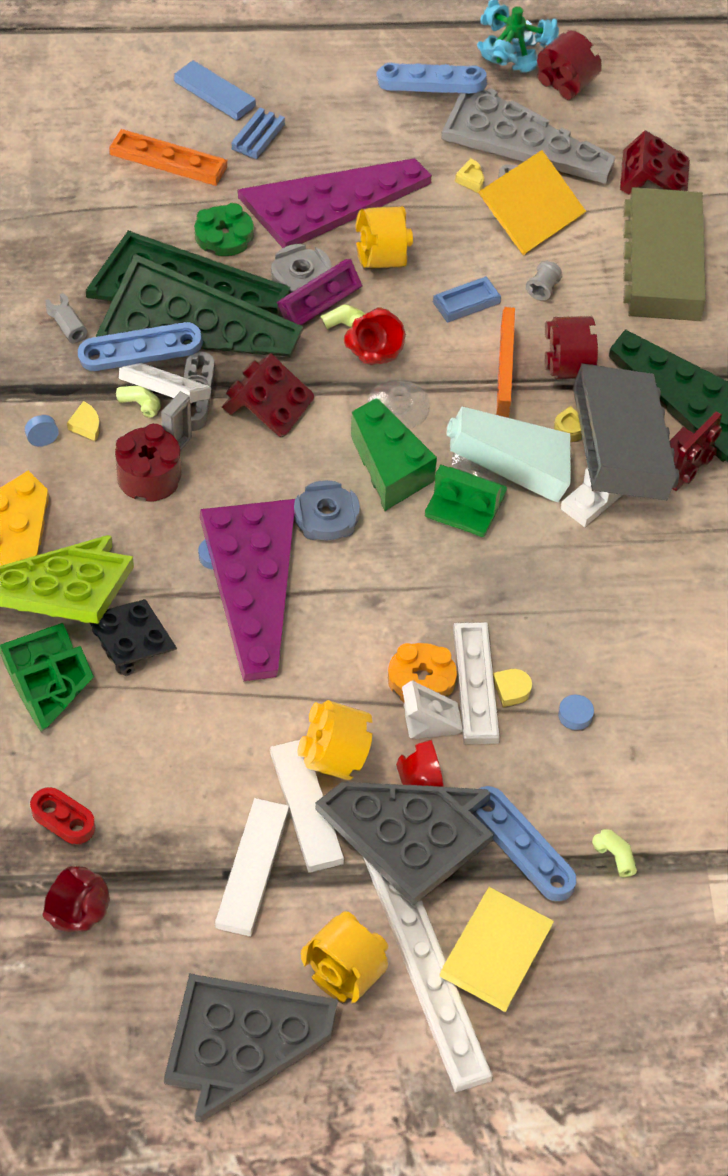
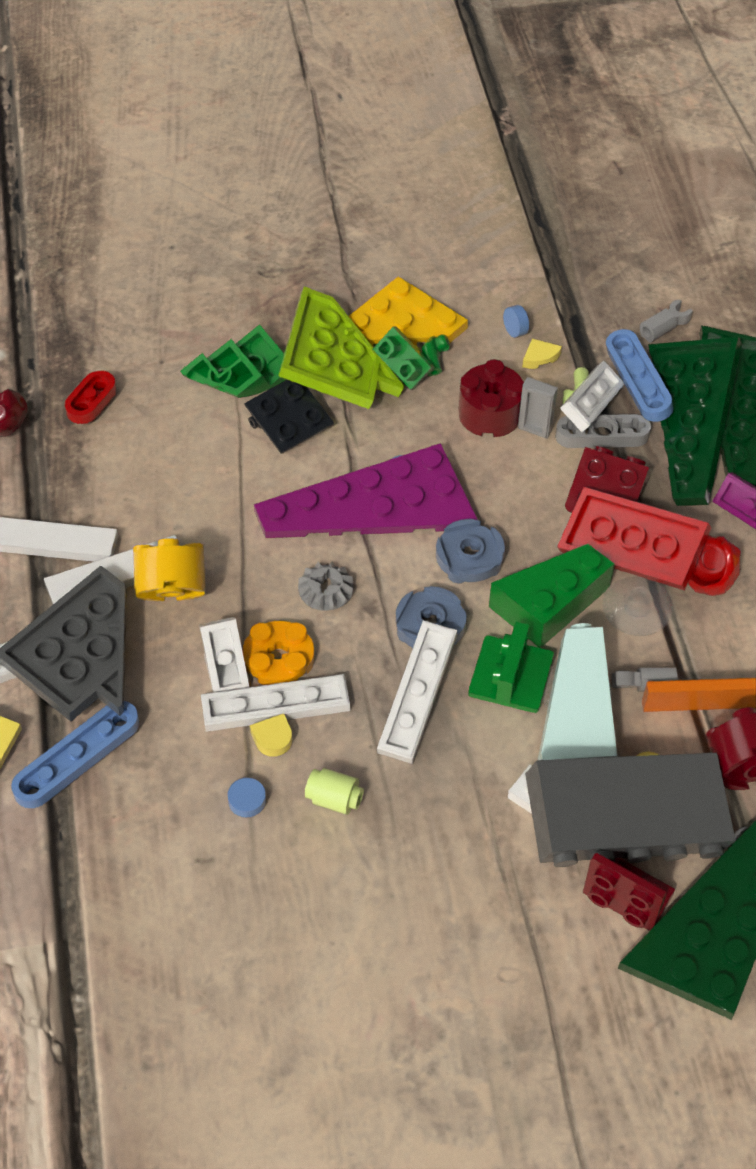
camera: 85 degrees right, 0 degrees up
(67, 507) = (432, 350): none -> green arm
(80, 524) = (403, 357): none -> green hips
(344, 314) = (743, 539): yellowish green arm -> none
(345, 380) = (637, 537): none -> plate
(357, 638) = (334, 596): none -> light grey gear
(401, 566) = (430, 602): none -> sand blue plate
(420, 767) = (154, 663): red brick -> none
(482, 567) = (417, 692): none -> white tile
(485, 398) = (638, 679): none -> light grey bar
(579, 642) = (334, 790): none -> yellowish green brick
(619, 848) = (76, 845): yellowish green arm -> none

